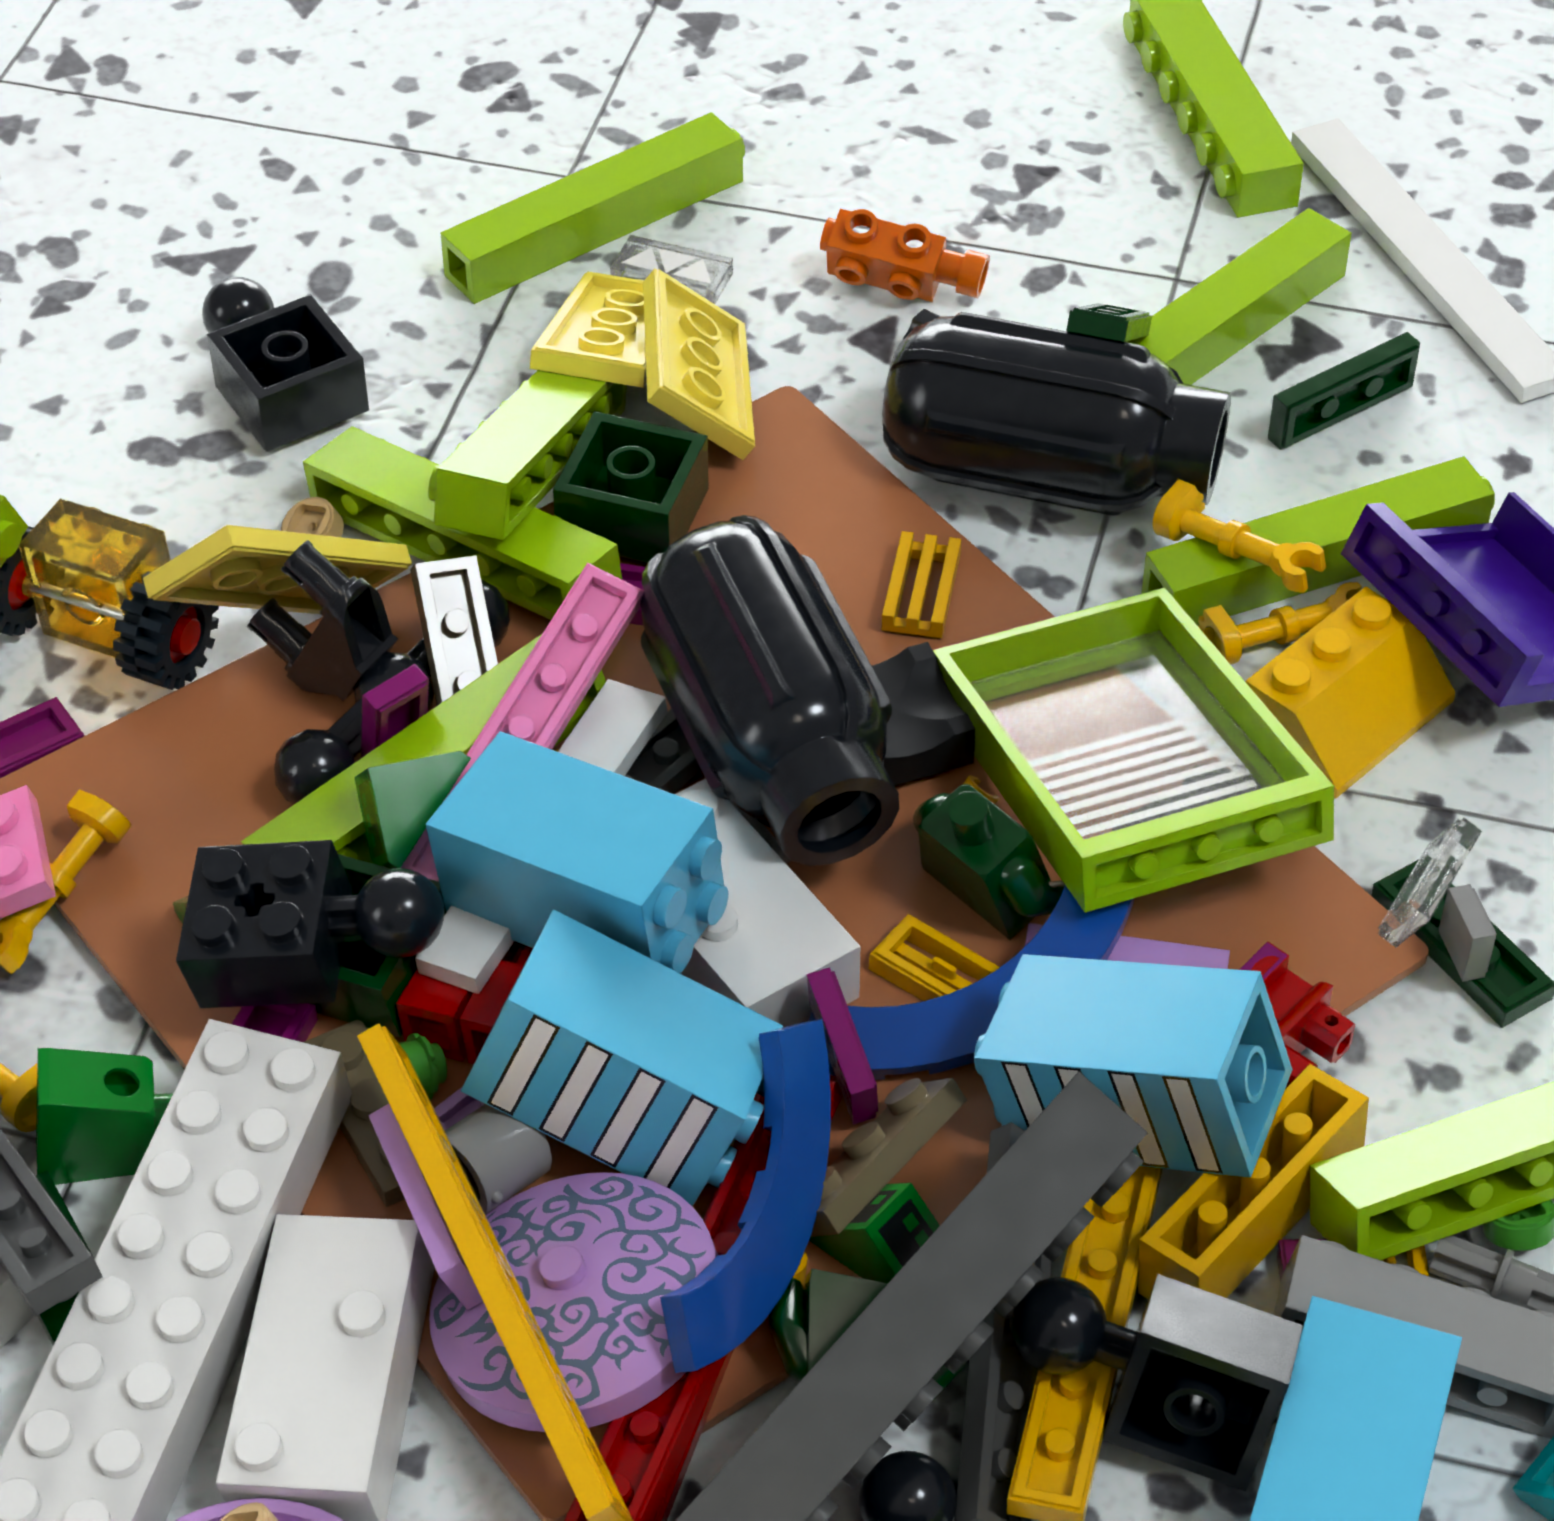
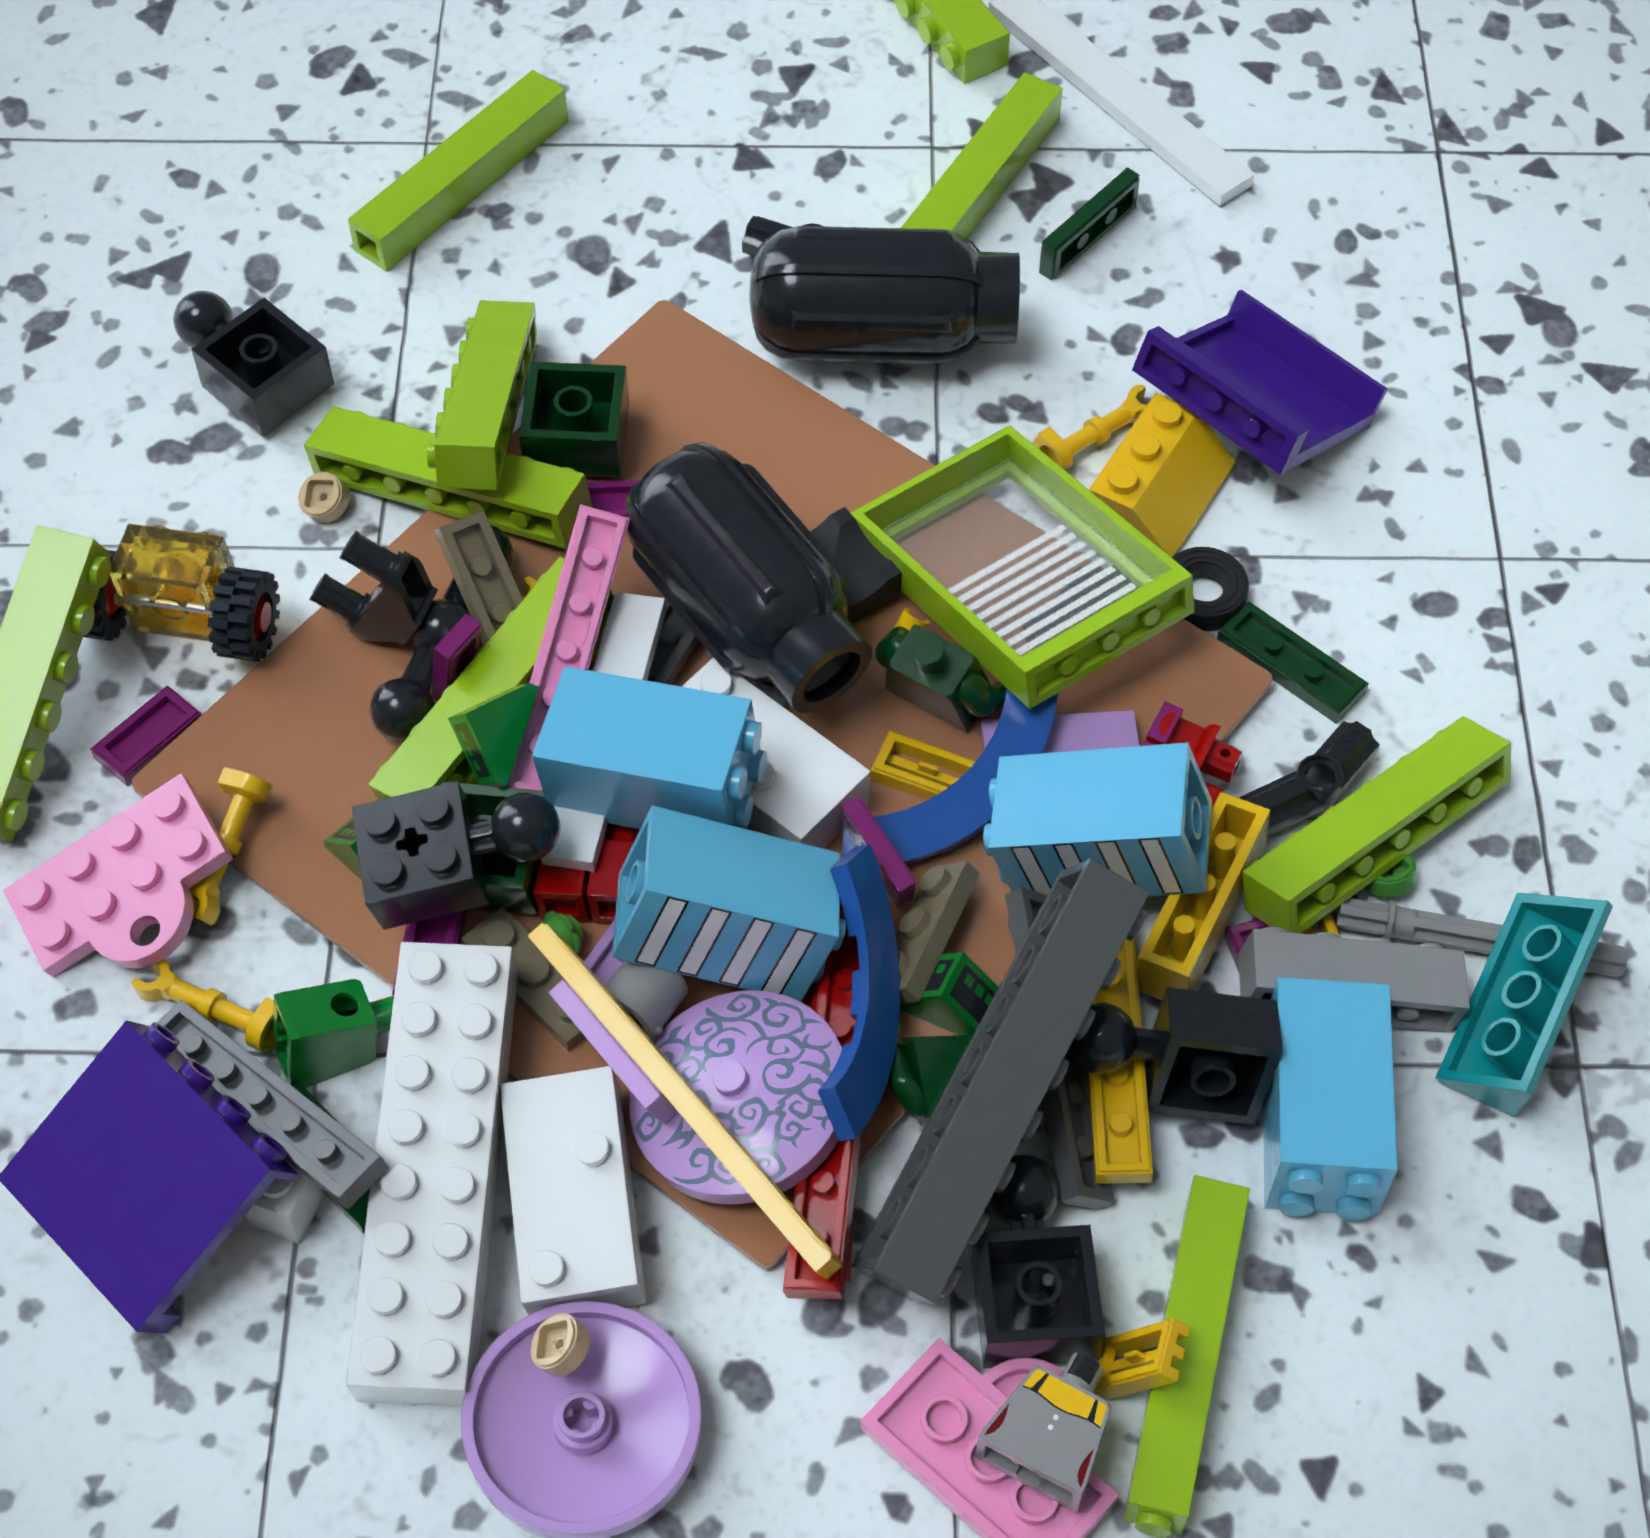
camera: 15 degrees left, 10 degrees up
(245, 563) = (318, 551): light yellow tile -> none
(597, 333) = (513, 279): light yellow tile -> none
(696, 269) = (537, 213): clear tile -> none
(697, 363) = (591, 298): light yellow tile -> none
(888, 263) = (711, 177): orange brick -> none
(927, 553) = (817, 424): yellow tile -> none
(1109, 322) = (910, 209): dark green tile -> none
(1181, 514) = (1001, 359): yellow piece -> none
(1386, 804) = (1229, 574): none -> black tyre
(1423, 499) = (1100, 358): lime brick -> none
(1428, 882) = (1263, 625): clear tile -> none
(1452, 1080) = (1331, 768): none -> black piece
(1467, 932) = (1300, 659): light grey tile -> none

